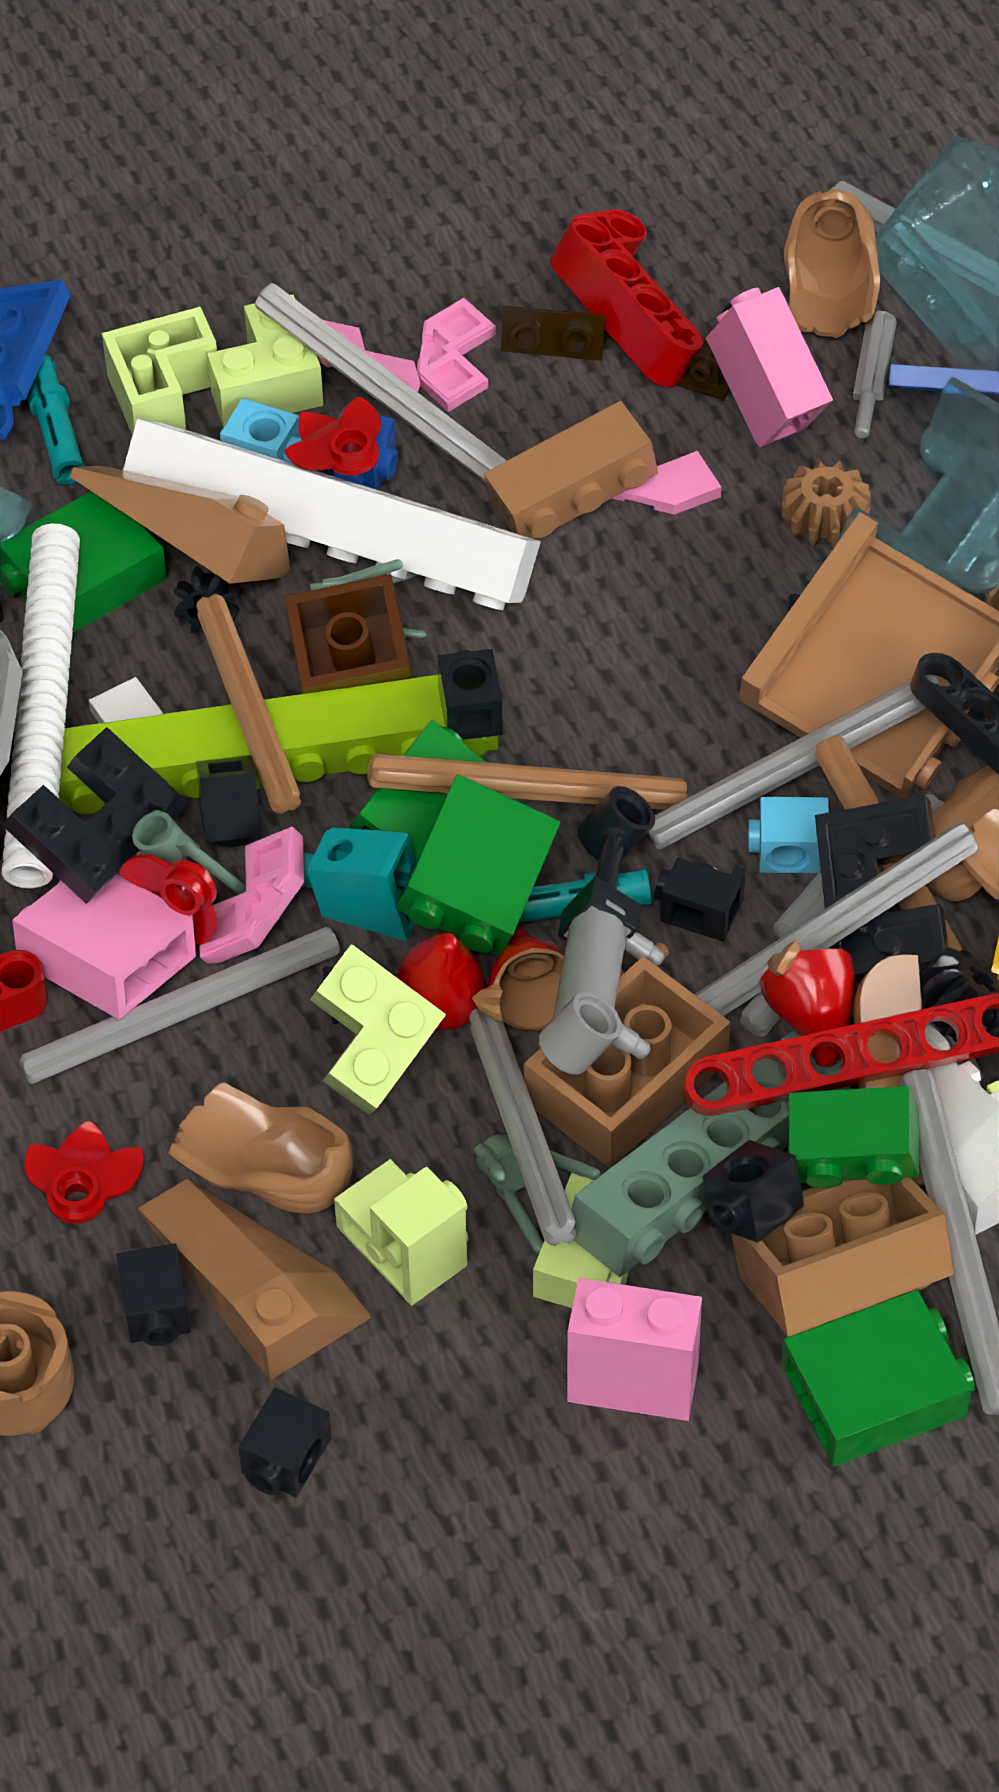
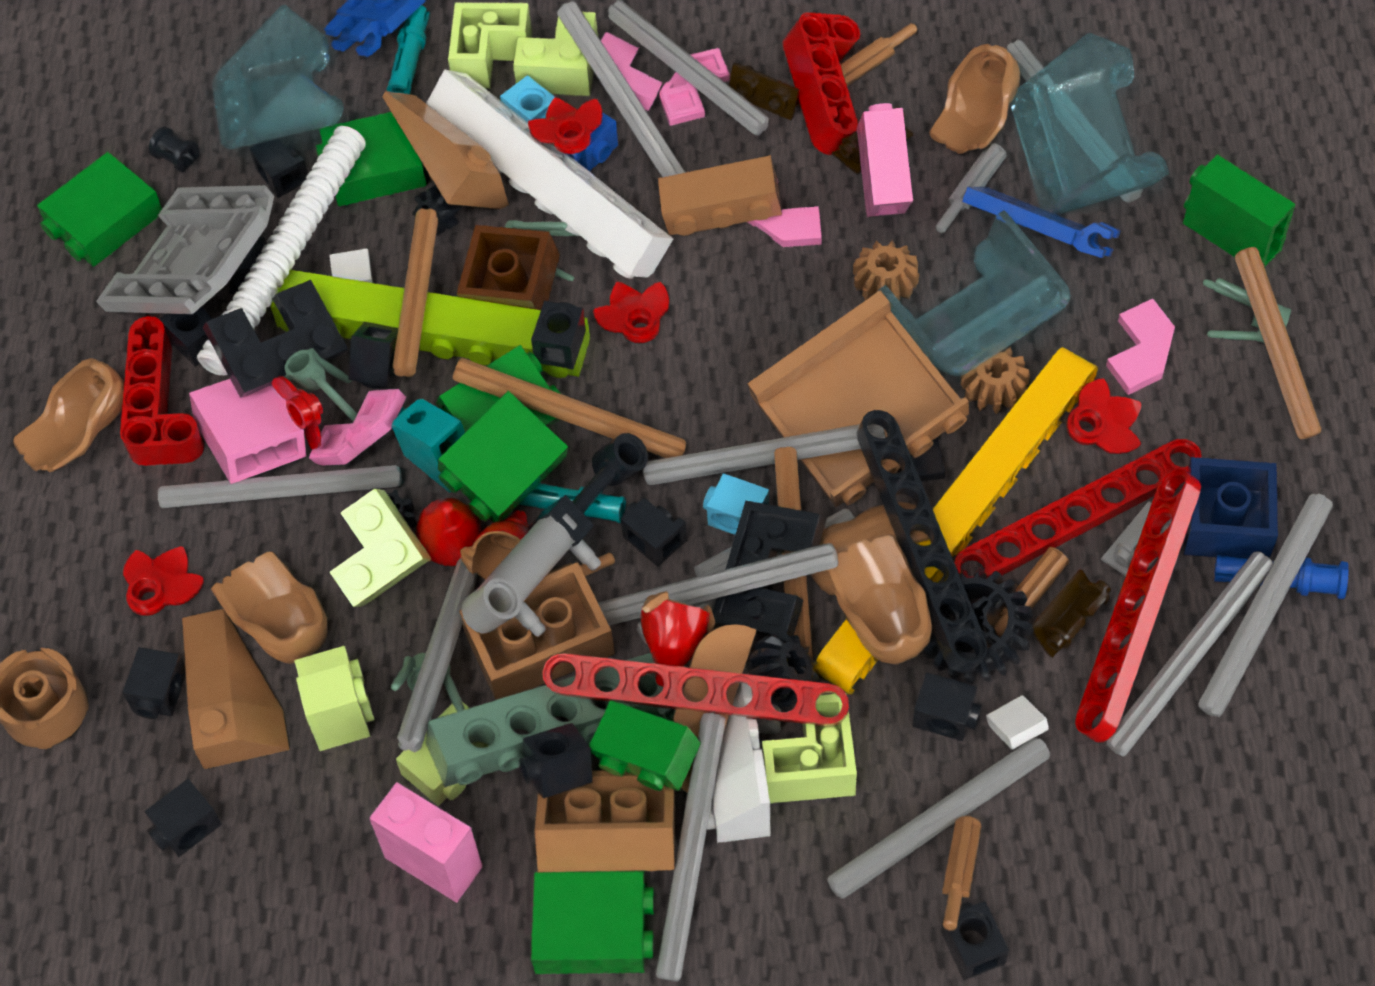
camera: 25 degrees right, 5 degrees up
(442, 330) = (688, 68): none -> light grey axle
(521, 647) = (630, 308): none -> red plate
(671, 244) = (874, 54): none -> medium nougat axle

